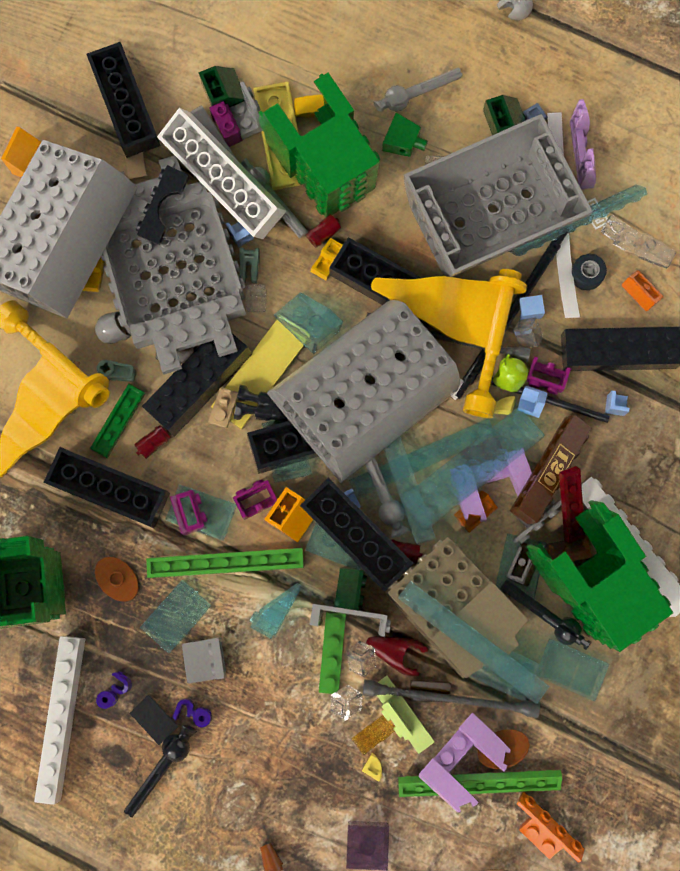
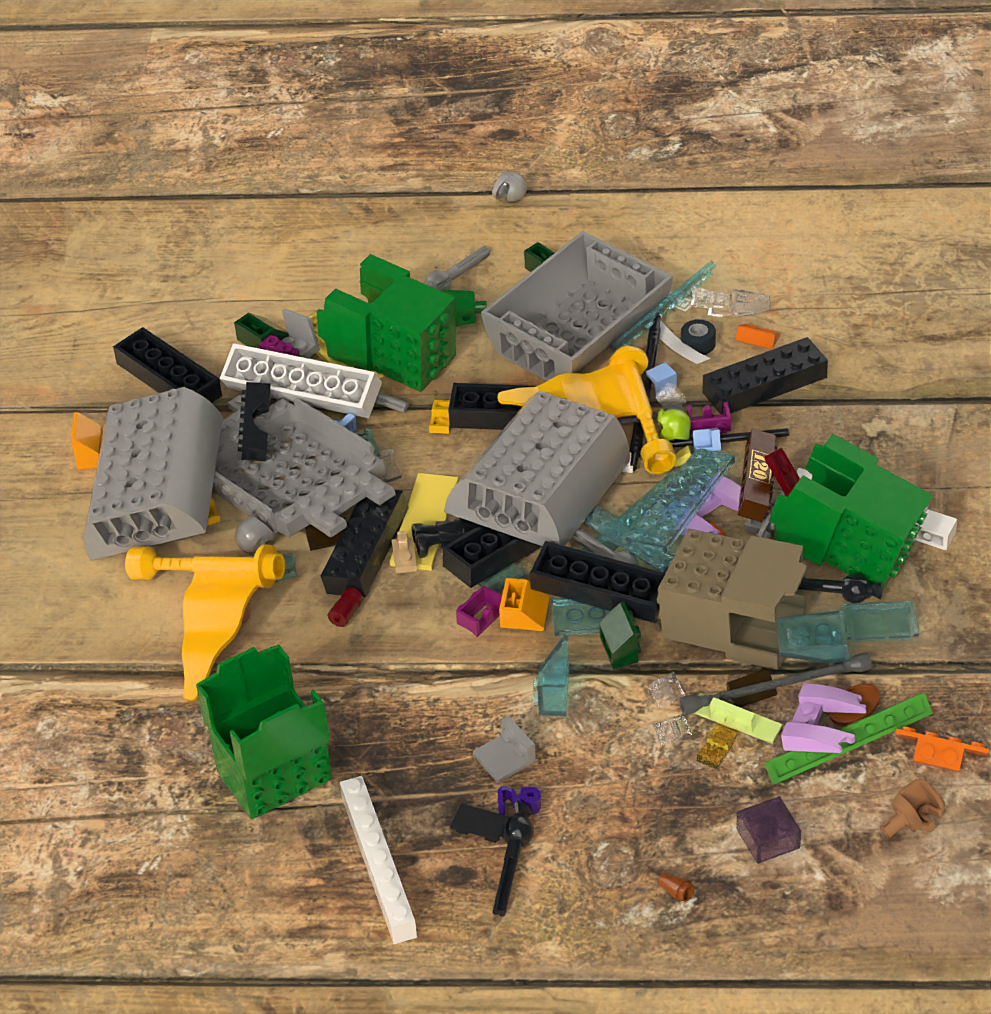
camera: 25 degrees left, 35 degrees down
(107, 487) = (331, 652): black brick -> none
(109, 697) = (419, 821): dark purple leg -> none
(116, 579) = (370, 731): dark orange piece -> none
(117, 420) = (298, 609): green tile -> none
(175, 616) = (452, 734): clear light blue piece -> none
(180, 514) = (427, 650): magenta window -> none
(218, 513) = (429, 645): clear light blue piece -> none
(225, 563) = (476, 672): bright green plate -> none
(309, 321) = (451, 460): clear light blue slope -> none
(317, 610) = (633, 637): light grey panel -> none
(323, 230) = (424, 396): dark red piece -> none
(332, 653) = (633, 700): bright green plate -> none
(373, 767) = (734, 774): light yellow tile -> none
(393, 651) = (696, 674): dark red animal -> none
(473, 642) = (762, 578): clear light blue plate -> none
(584, 160) = (622, 239): lavender wedge -> none
(616, 404) = (788, 418): light blue panel -> none

